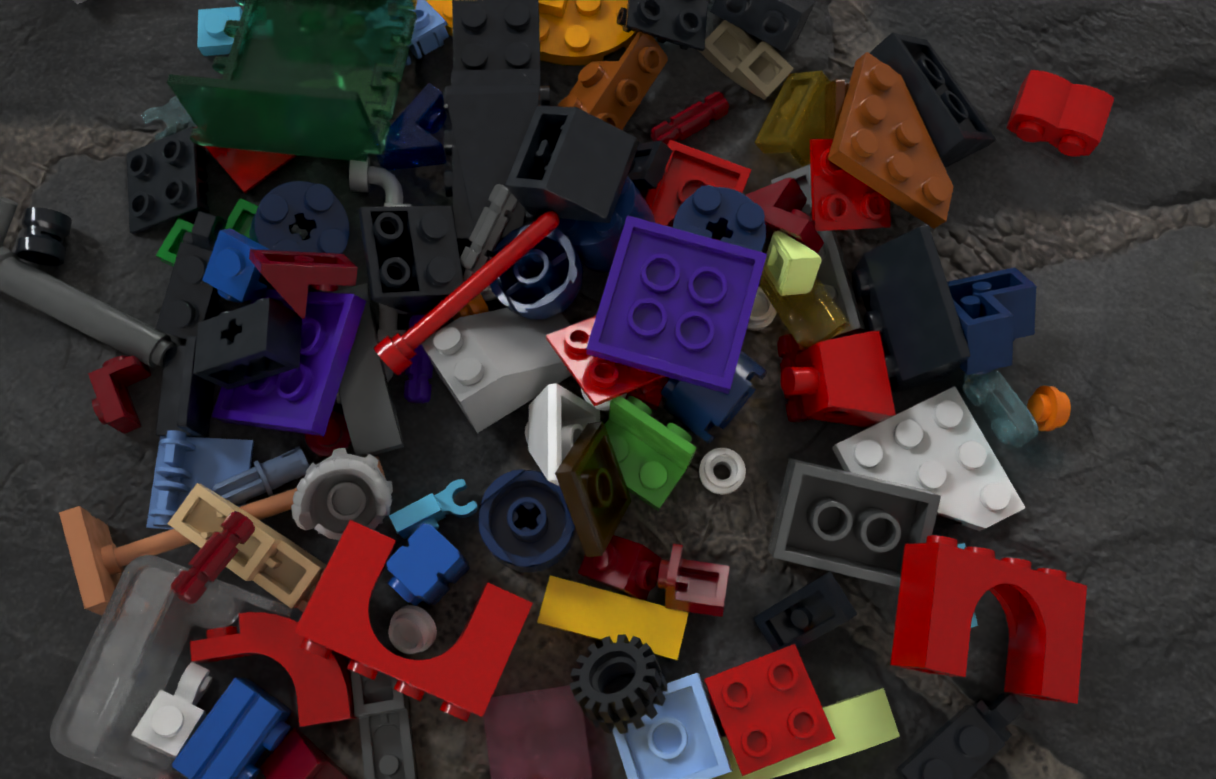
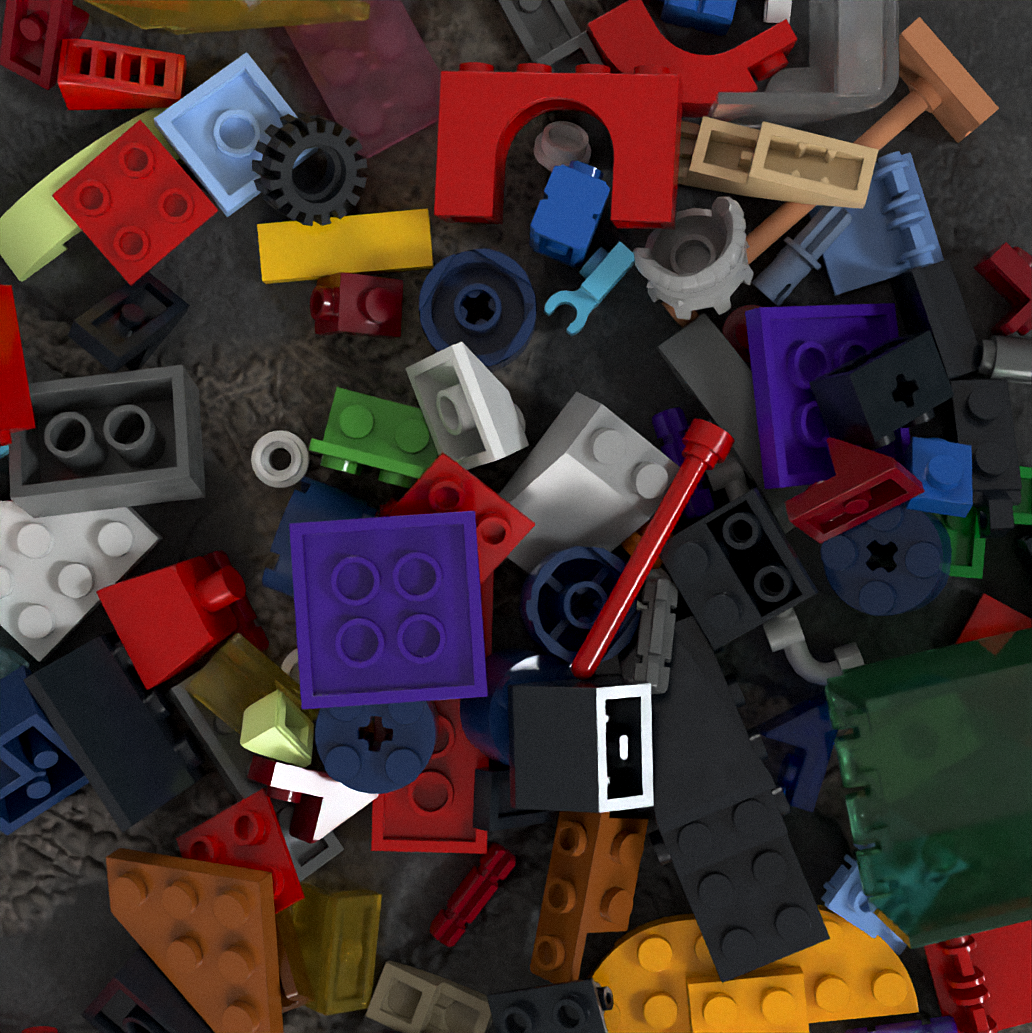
camera: 165 degrees right, 15 degrees up
(212, 557) = (804, 123): dark red axle -> none
(593, 488) = (413, 368): dark brown tile -> none
(693, 584) = (266, 312): dark red bracket -> none

